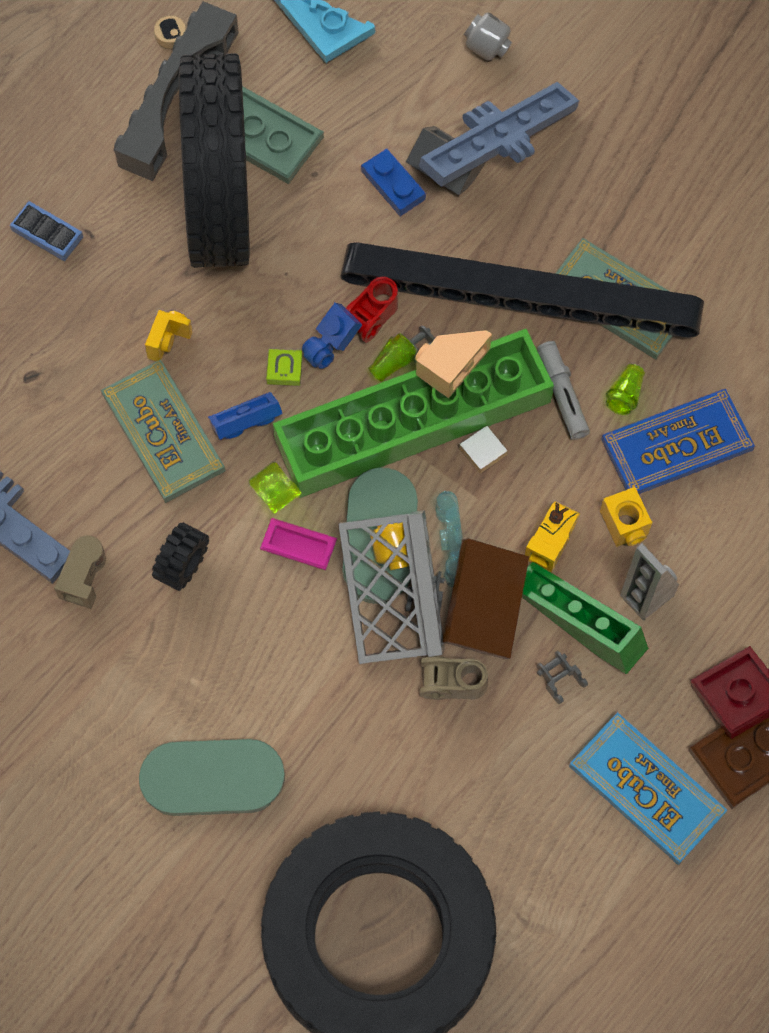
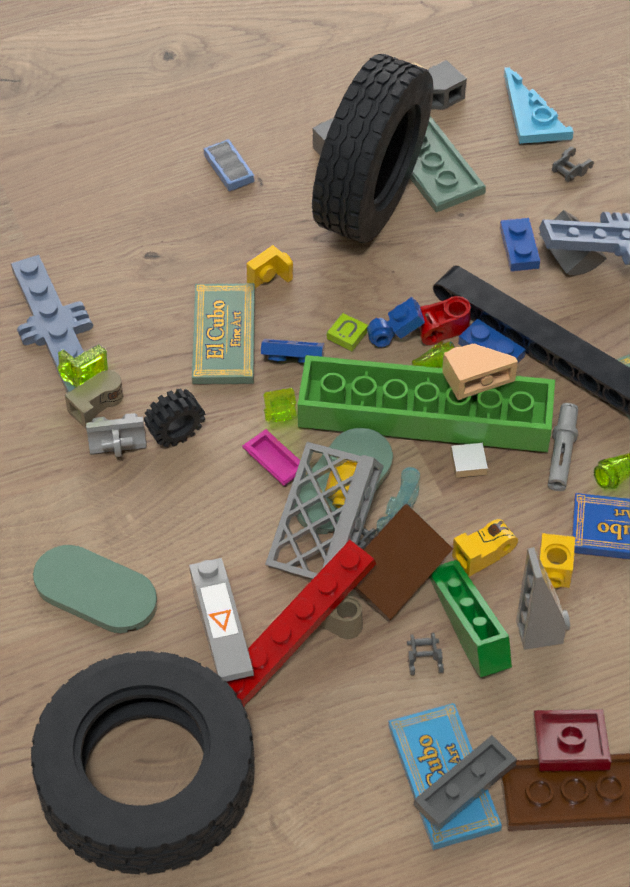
camera: 30 degrees right, 15 degrees down
(56, 549) = (82, 367): none -> clear neon green bracket
(131, 603) = (116, 435): none -> light grey hips
(362, 751) = (220, 619): none -> light grey slope
(401, 67) = (578, 170): none -> dark grey piece
(432, 311) = (486, 336): none -> blue plate
(433, 714) = (303, 617): none -> red plate
(677, 789) = (464, 782): none -> dark grey plate

